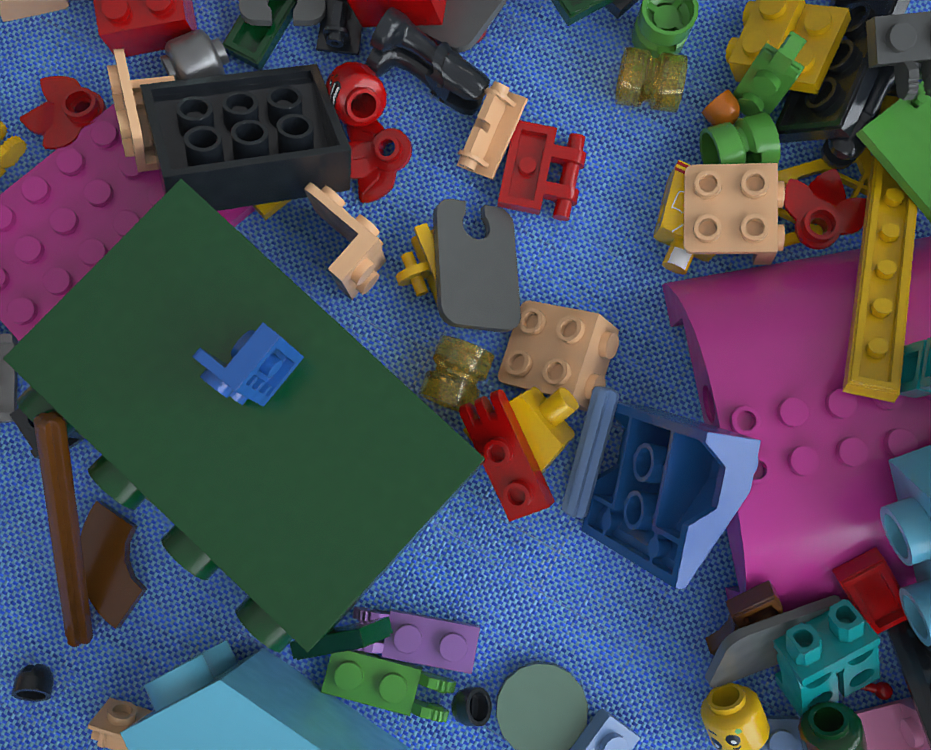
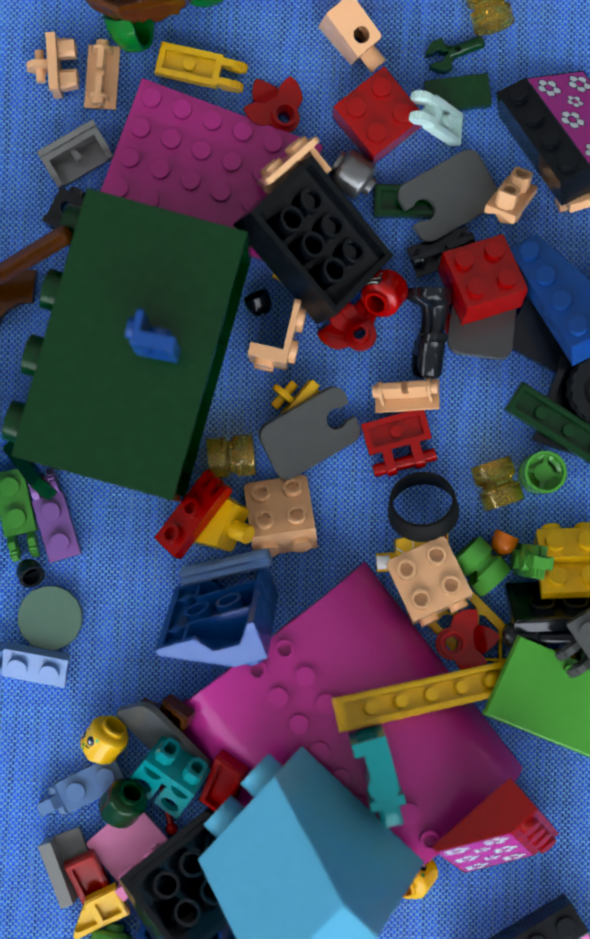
camera: 65 degrees right, 5 degrees up
(284, 249) = (258, 302): none -> black hinge
(660, 200) = (429, 531): none -> black tyre

